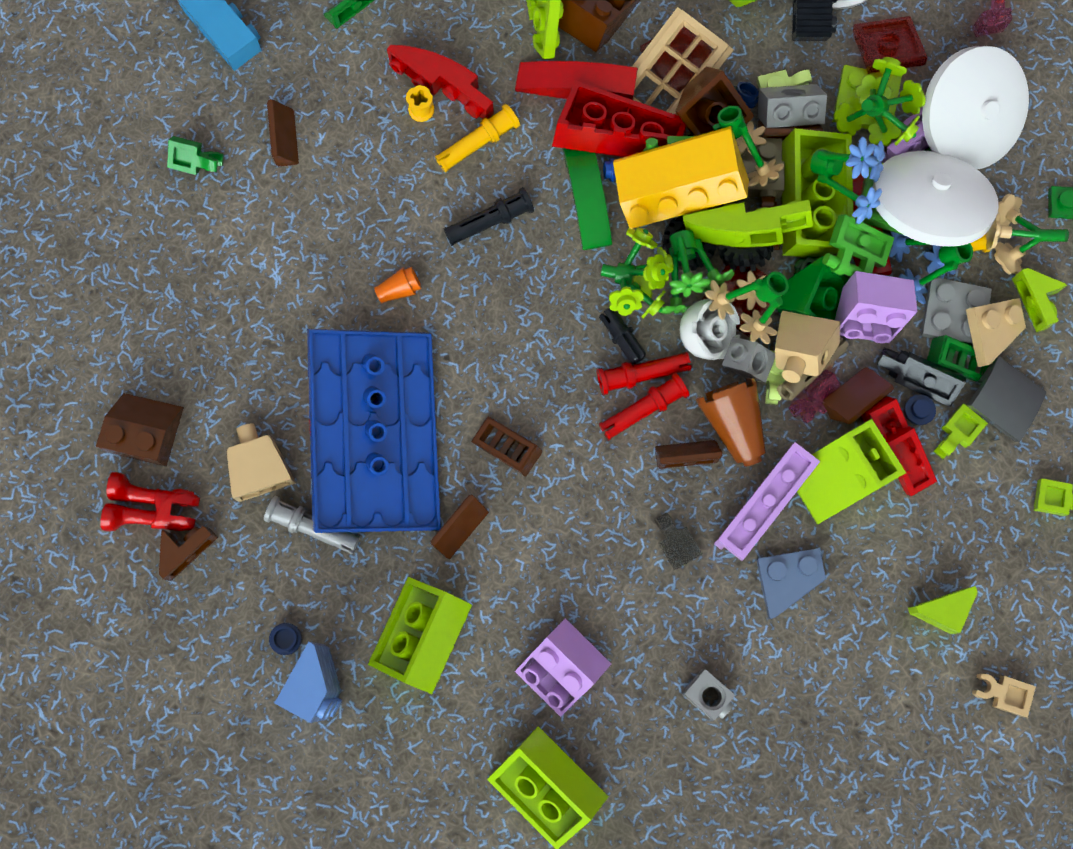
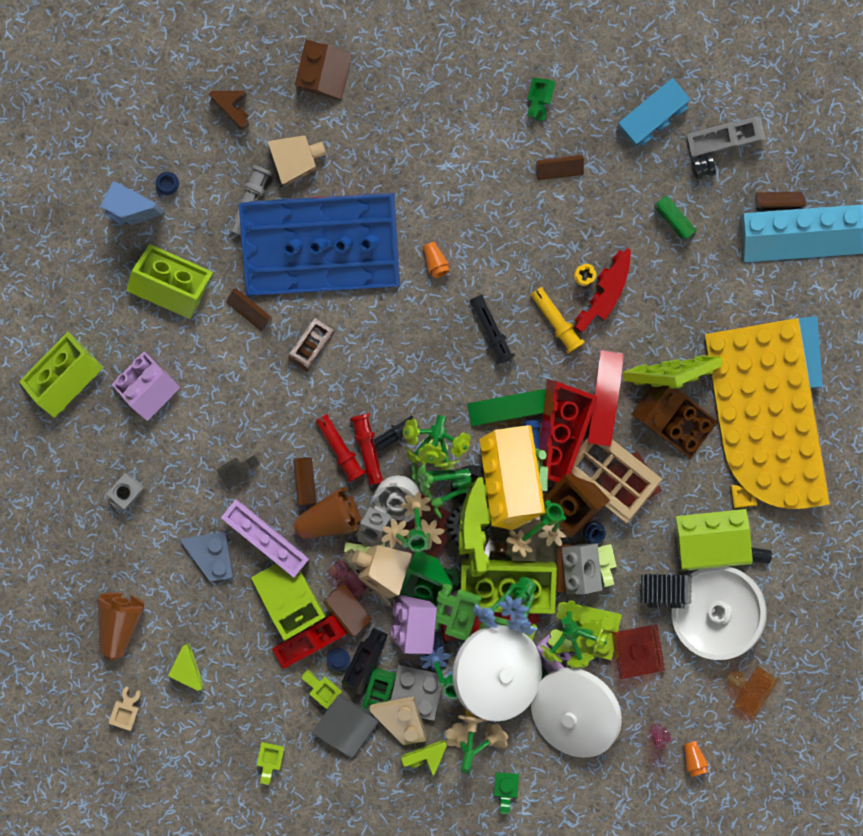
camera: 90 degrees right, 10 degrees up
(121, 490) = (275, 60): red piece -> none
(888, 704) = (117, 622): none -> dark orange cone

